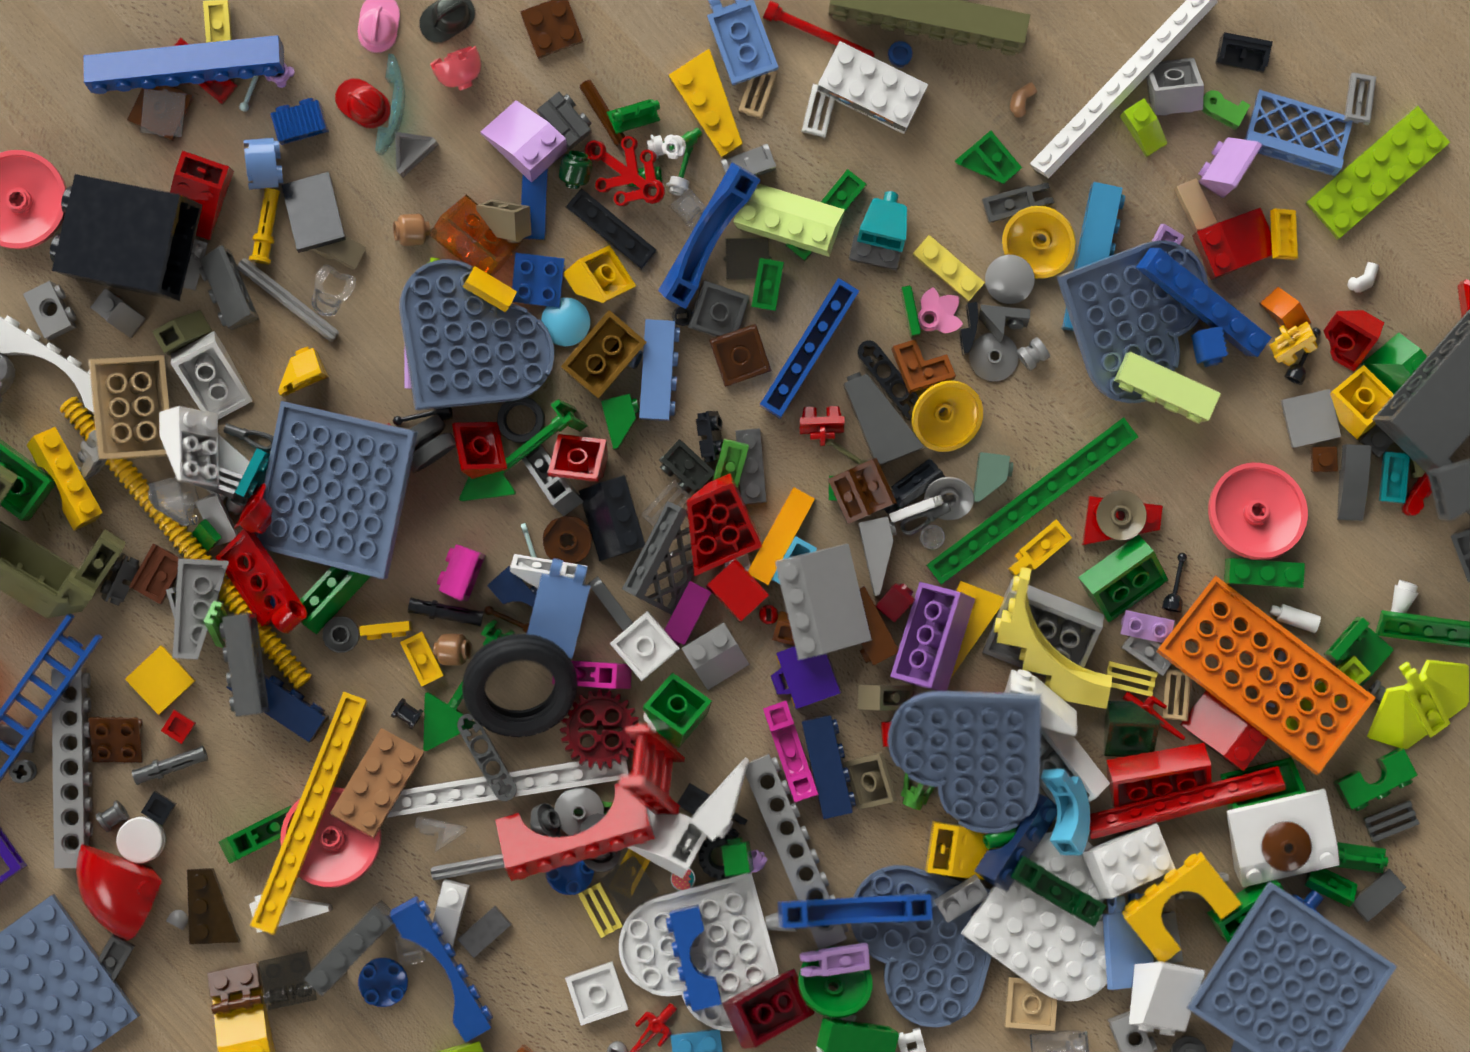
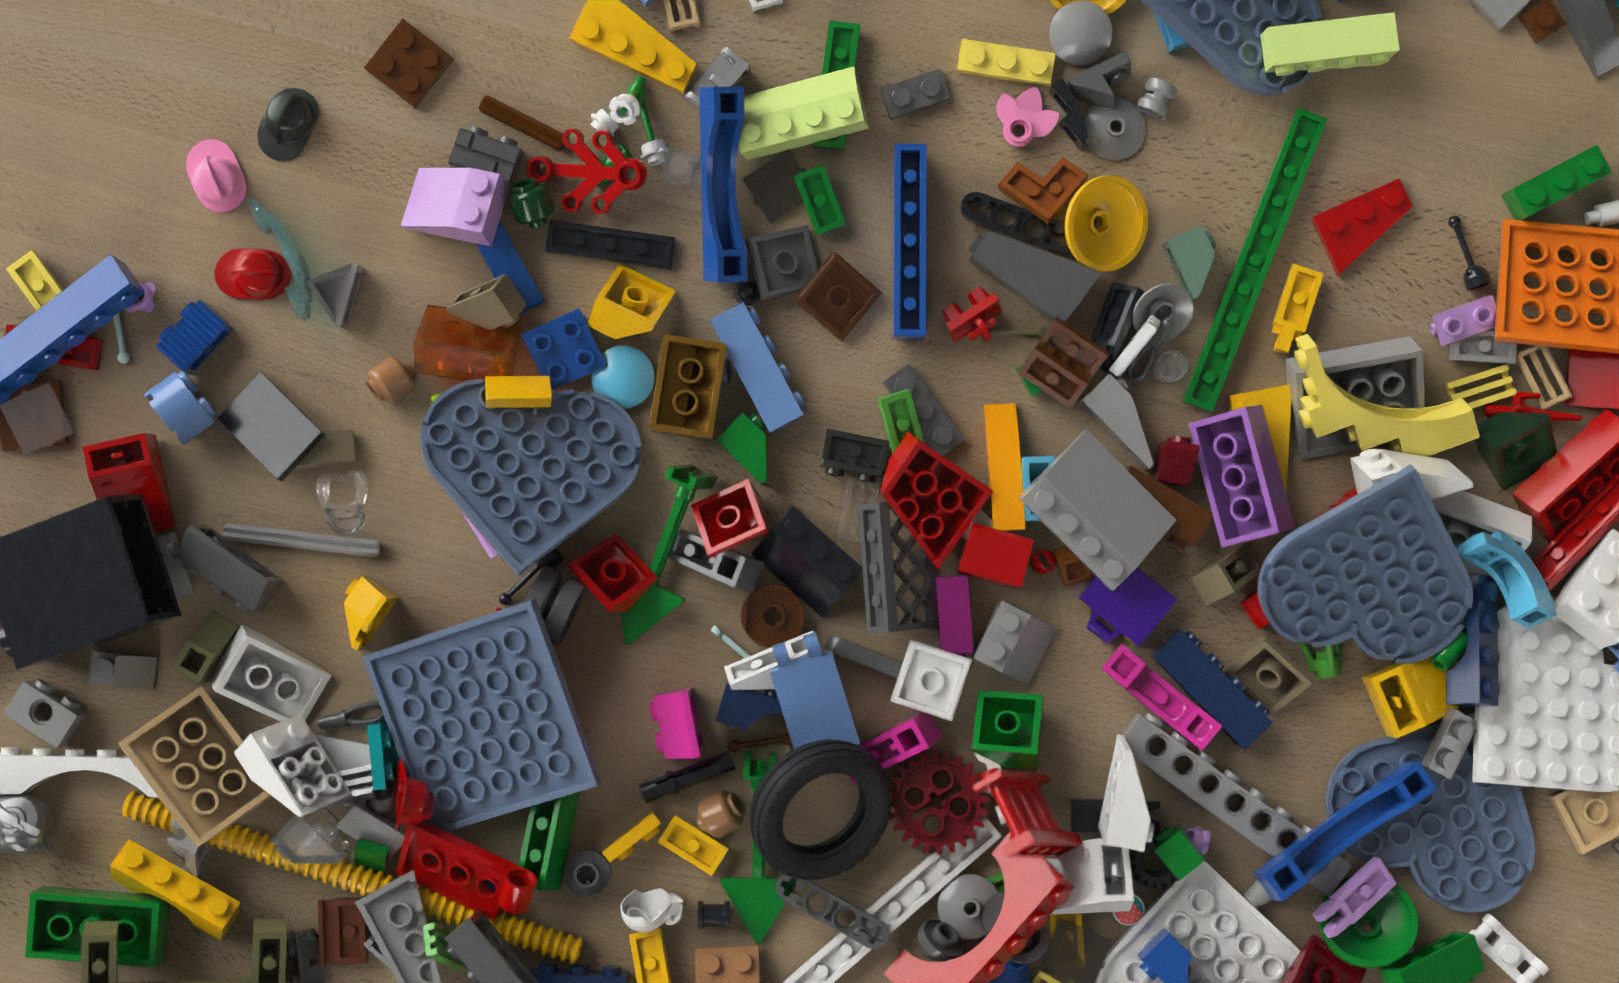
camera: 30 degrees left, 0 degrees up
(263, 238) = (233, 488): yellow pin -> none
(368, 684) = (651, 909): none -> white hair
(458, 68) = (333, 170): coral cylinder -> none
(502, 420) = (641, 538): black tyre -> none
(634, 115) = (559, 104): green hinge -> none
(710, 424) = (854, 394): black hinge -> none
(885, 223) = (908, 54): teal torso -> none
(910, 311) = (994, 133): green tile -> none
(1058, 891) = (1554, 670): dark green slope -> none
(1123, 578) = (1406, 282): green slope -> none
(1131, 507) = (1377, 206): dark tan dish -> none
(1257, 511) = (1509, 120): coral dish -> none

